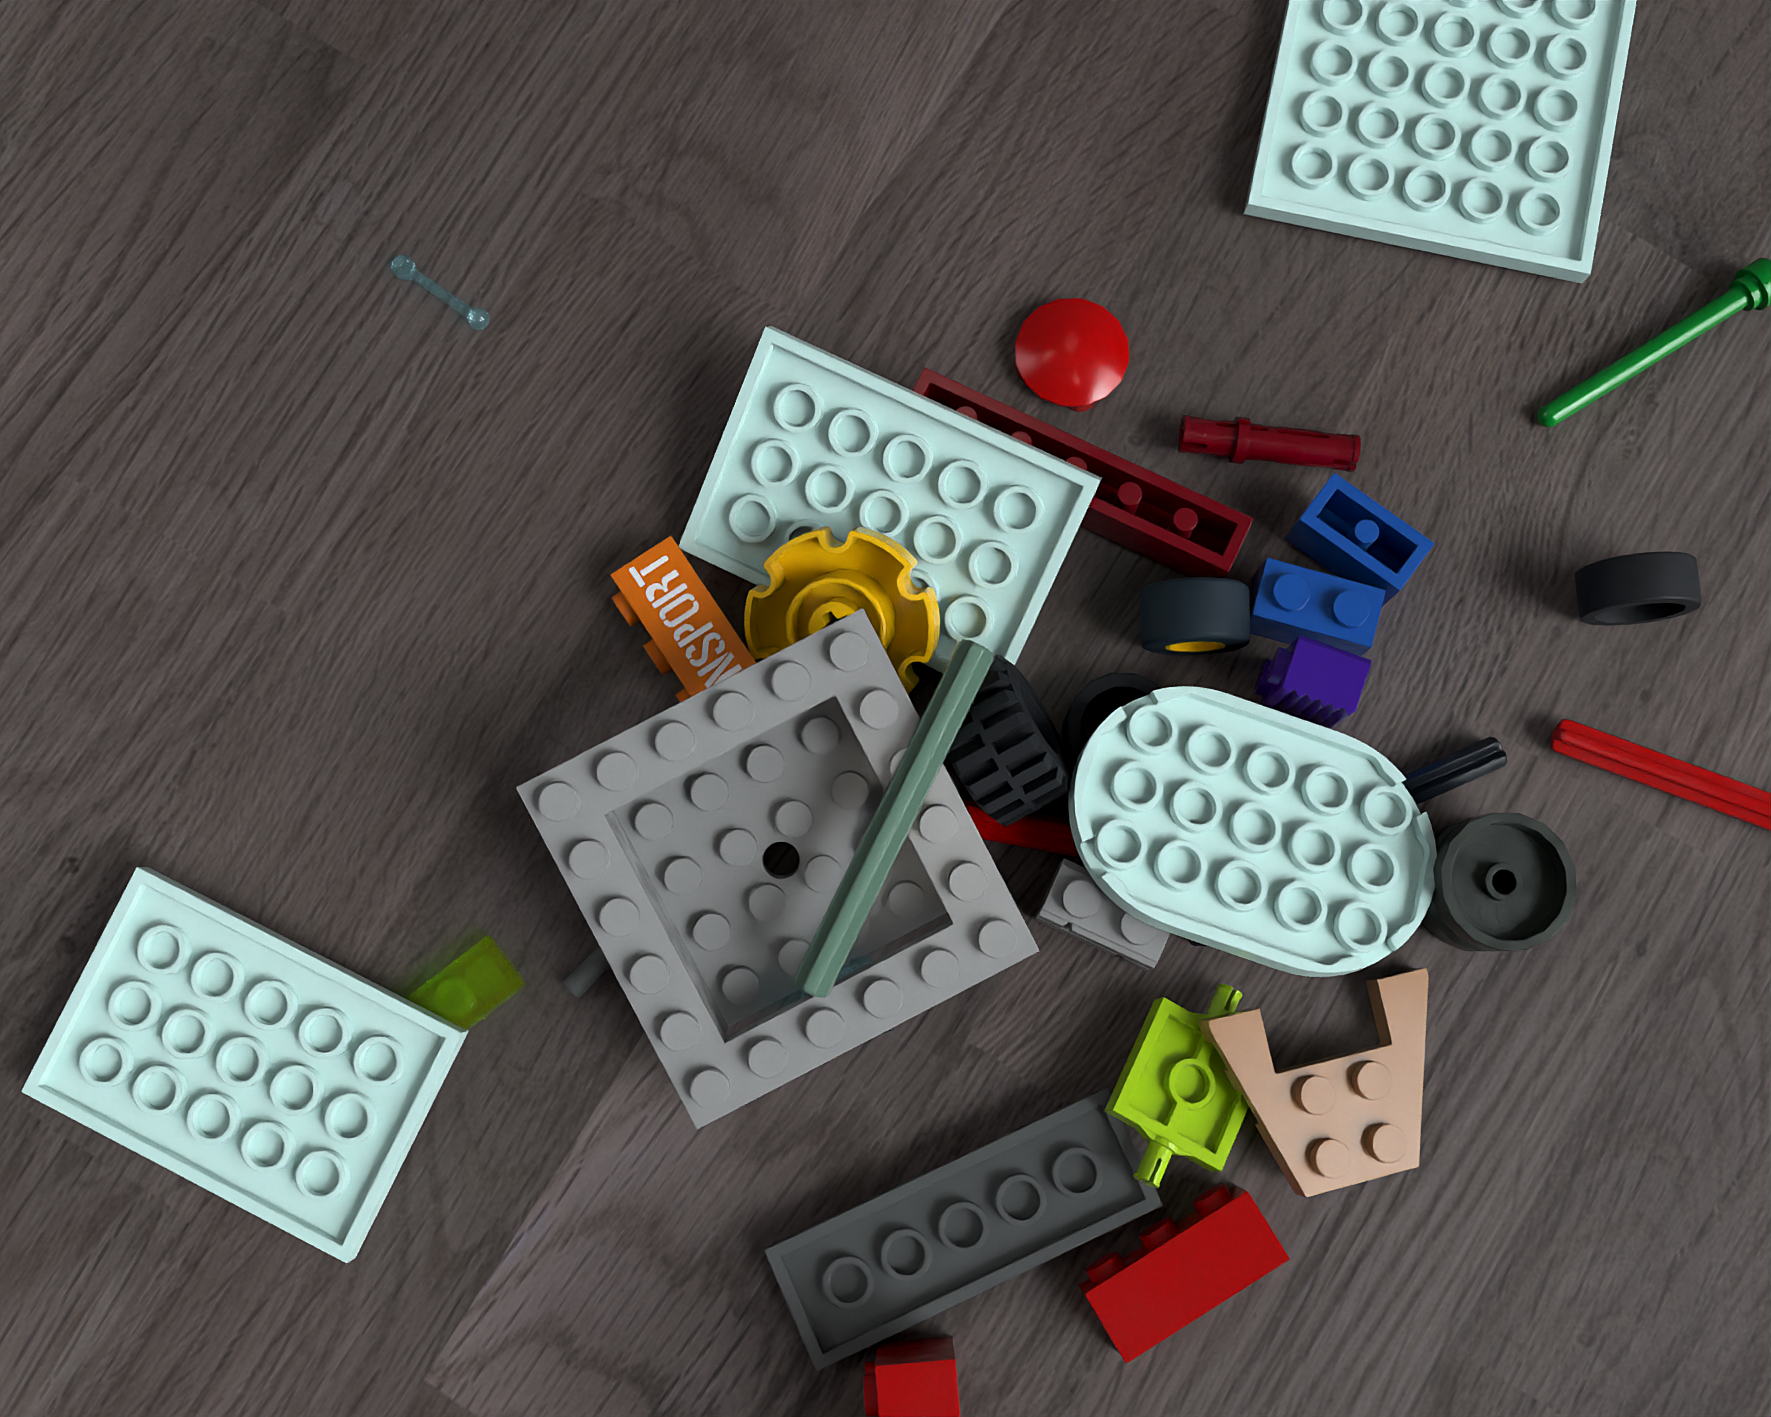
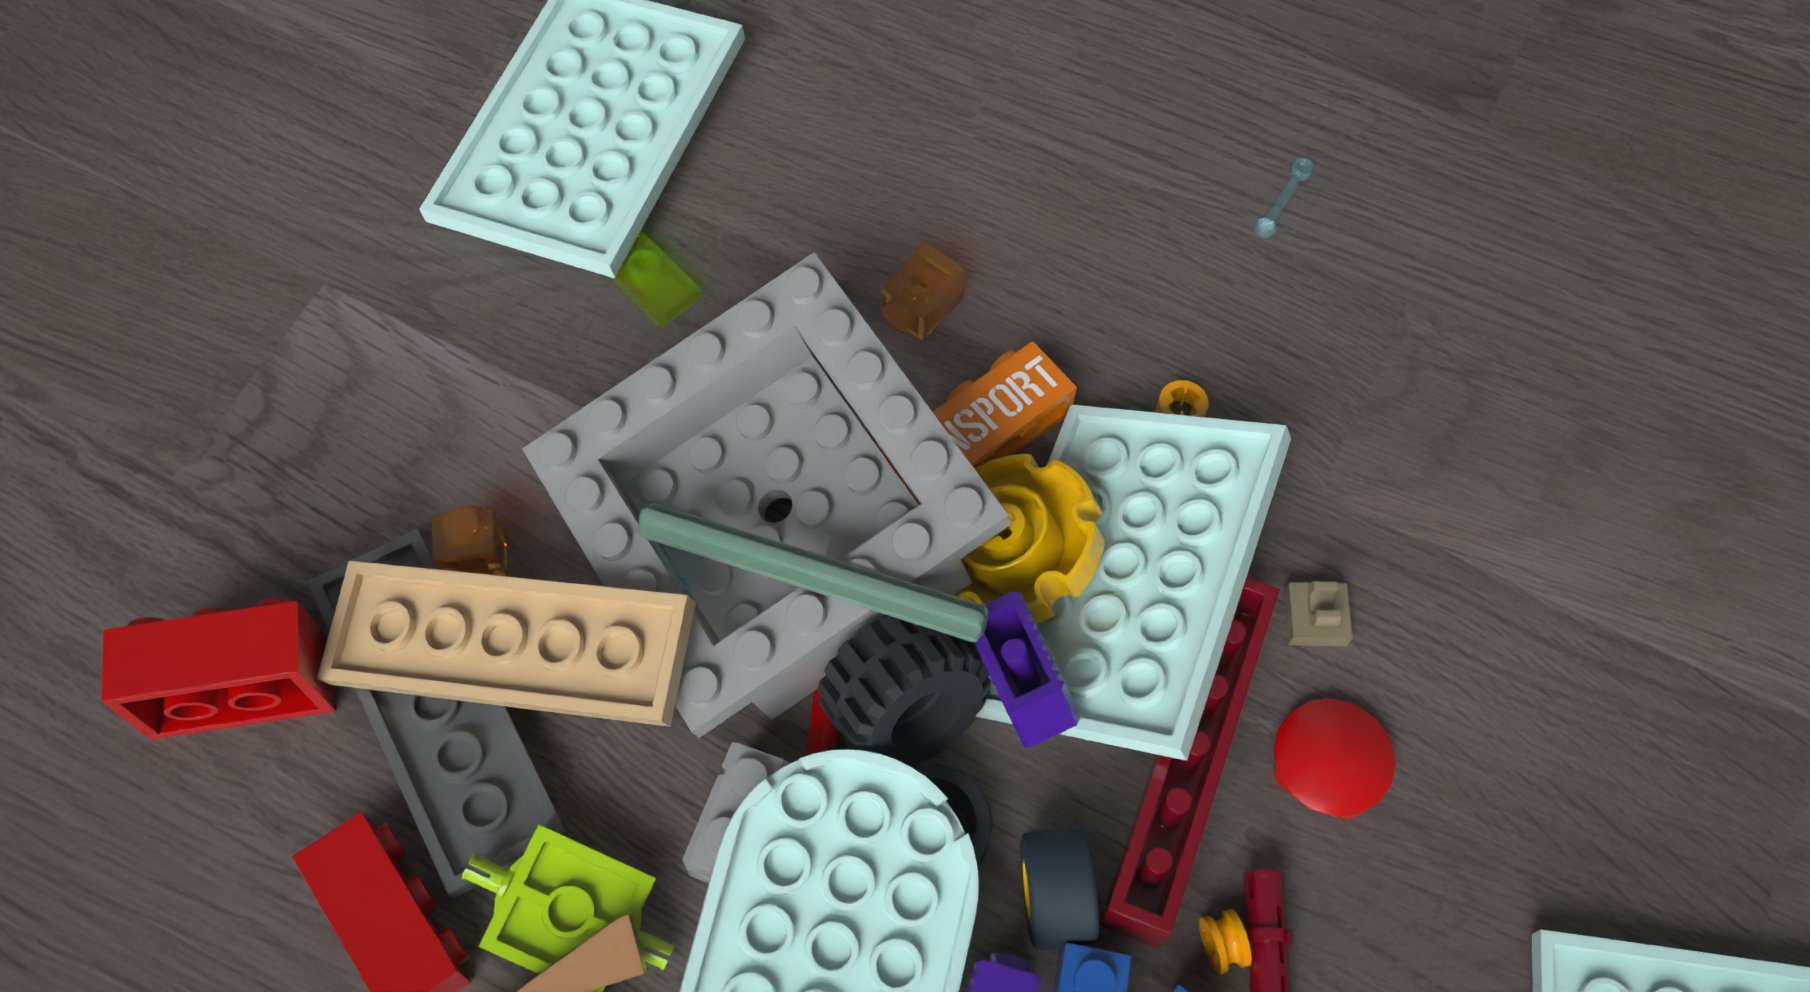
camera: 80 degrees right, 15 degrees down
(507, 672) = (923, 291): none -> clear orange brick
(697, 422) = (1183, 392): none -> light orange bush
(786, 1192) = (467, 535): none -> clear orange brick
(926, 341) = (1317, 613): none -> dark tan tile
(928, 1142) = (509, 641): none -> tan plate
(1001, 618) = (1025, 672): none -> dark purple brick
(1242, 477) = (1225, 941): none -> light orange bush

